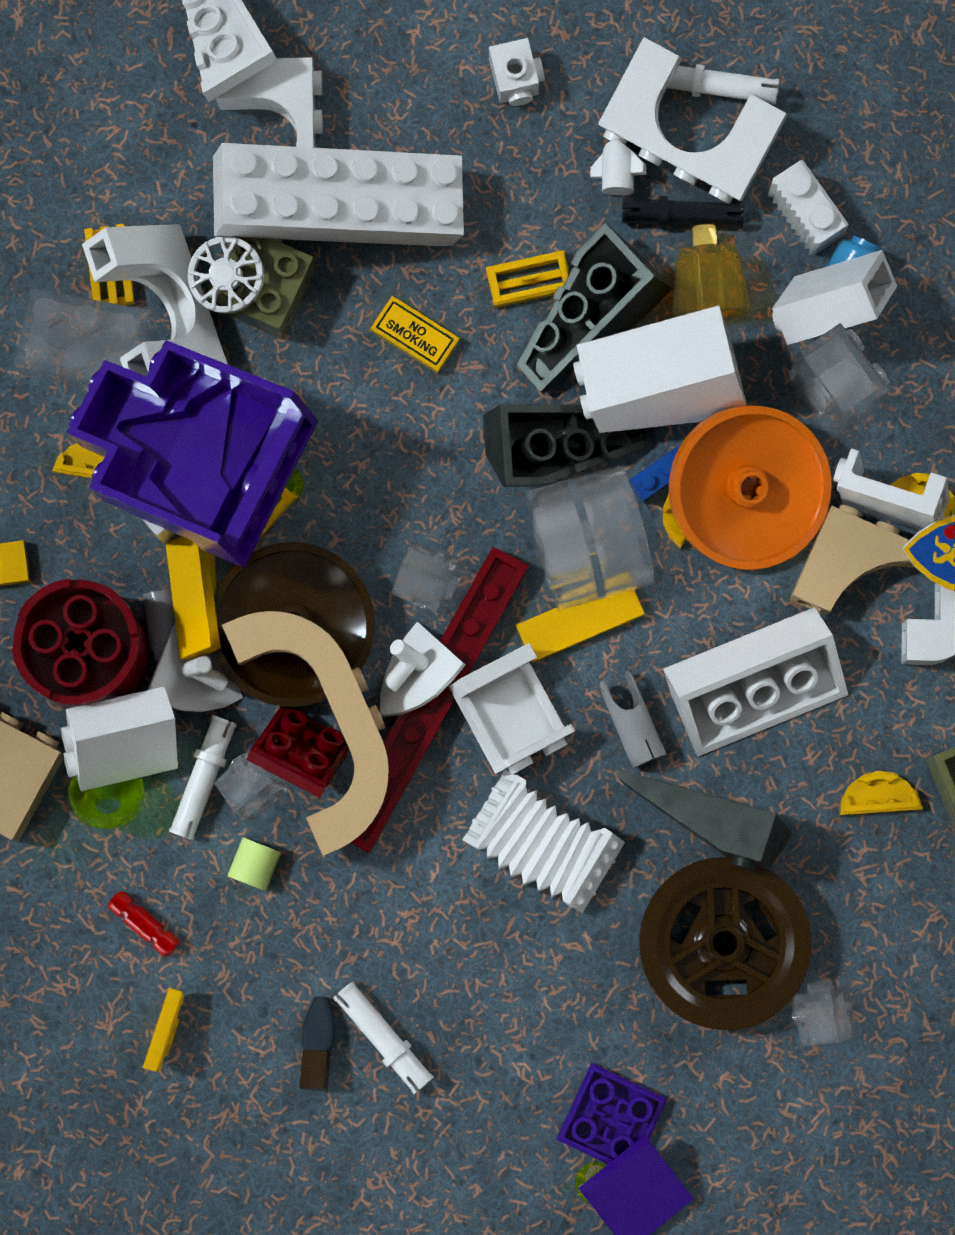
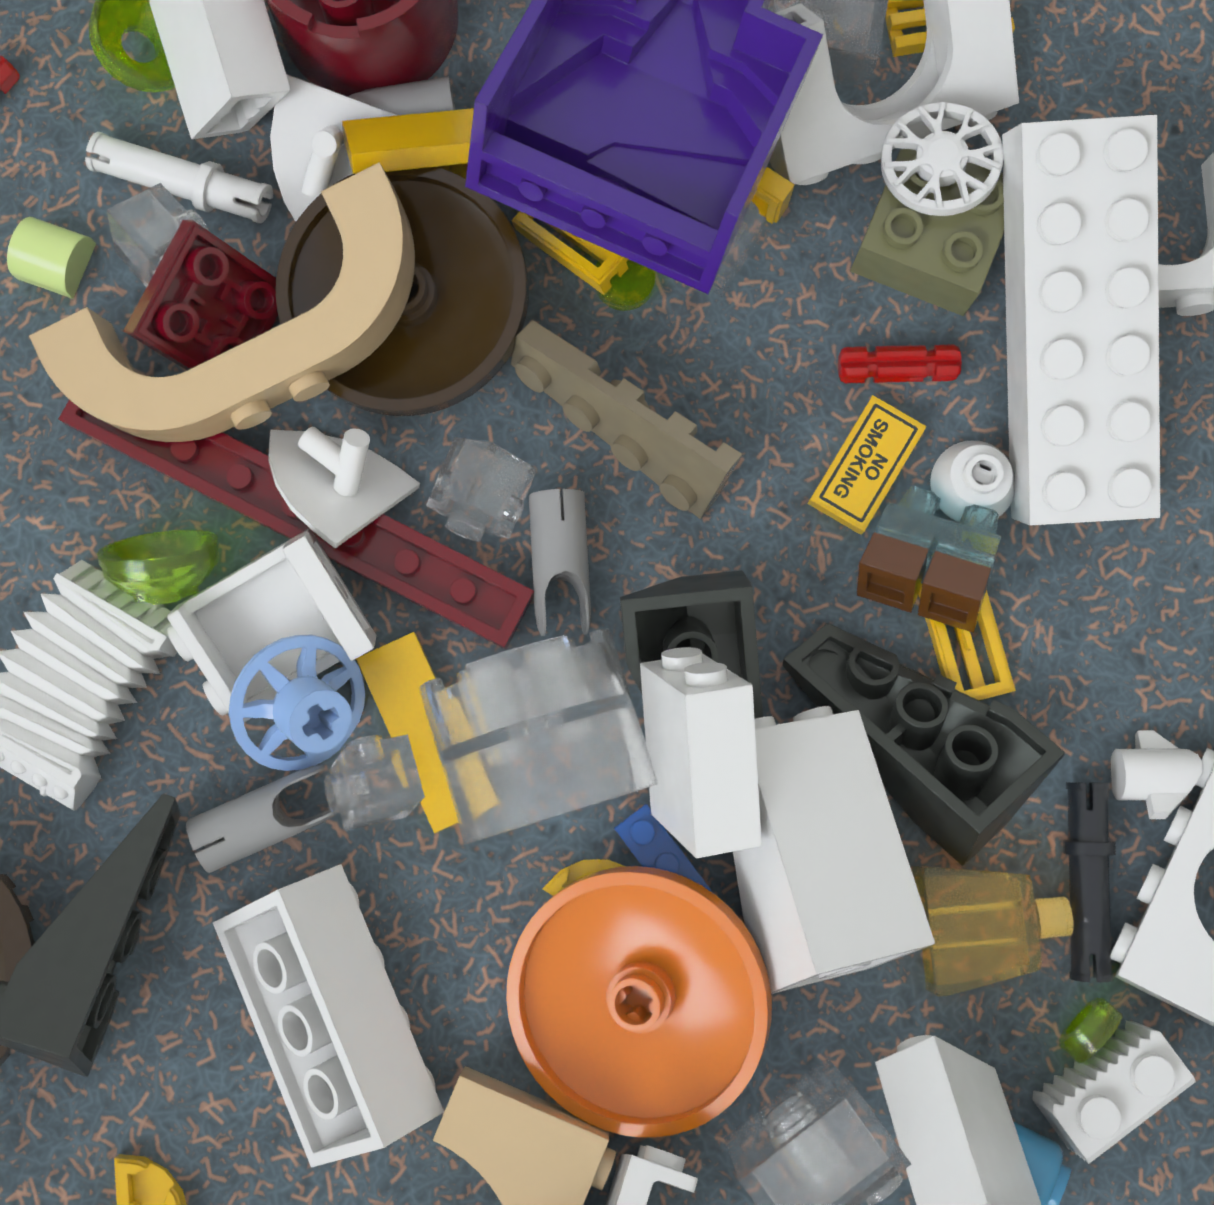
camera: 85 degrees right, 0 degrees up
(348, 310) = (899, 363): none -> red axle
(384, 484) = (640, 439): none -> dark tan wing
(423, 277) = (972, 475): none -> white cone
(467, 530) = (559, 548): none -> light grey piece
(467, 782) = (160, 564): none -> clear neon green piece
(478, 277) = (959, 556): none -> hips
(565, 687) = (303, 709): none -> light blue wheel
(601, 435) = (702, 752): none -> white brick
(612, 646) = (373, 781): none -> clear brick
(772, 218) = (1090, 1029): none -> clear neon green tile

